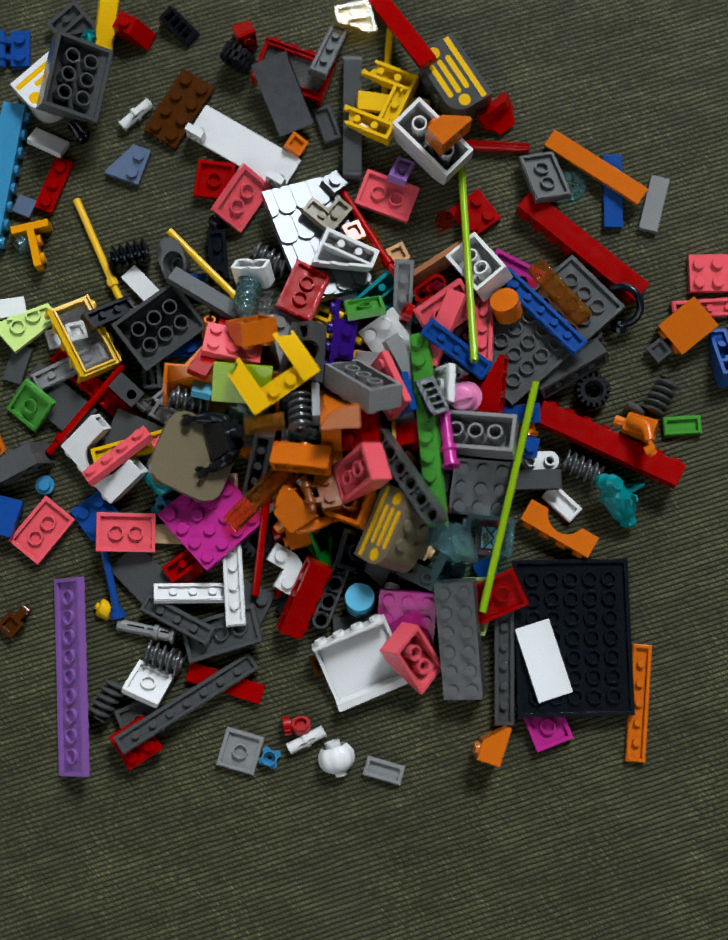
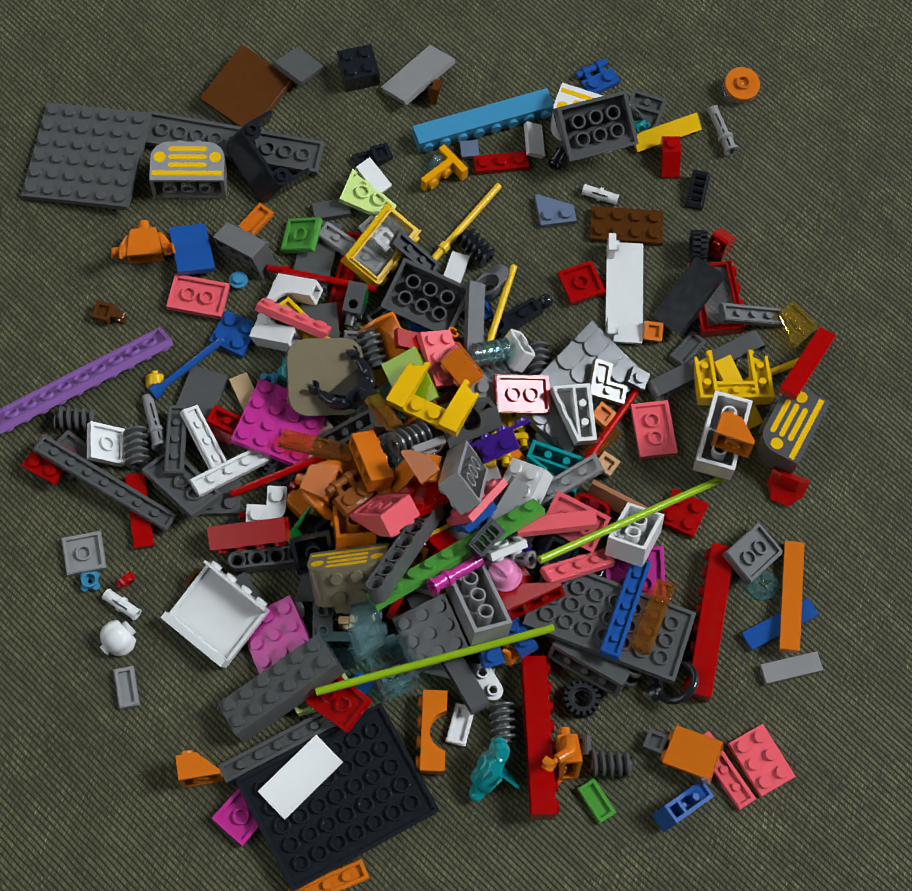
camera: 60 degrees right, 15 degrees down
(125, 532) = (230, 359): coral plate -> none
(201, 390) = (385, 351): medium azure tile -> none
(240, 198) = (577, 309): coral plate -> none
(301, 725) = (132, 592): red tile -> none
(359, 600) = (272, 585): medium azure piece -> none
(364, 308) = (536, 450): bright green tile -> none
(401, 171) = (682, 428): medium lavender plate -> none
(407, 312) = (551, 489): red tile -> none
(412, 656) = (242, 652): coral slope -> none
(444, 220) = (662, 489): clear red plate -> none
(454, 348) = (543, 541): blue tile -> none
(499, 146) = (755, 498): red axle -> none
(506, 306) = (611, 573): orange piece -> none

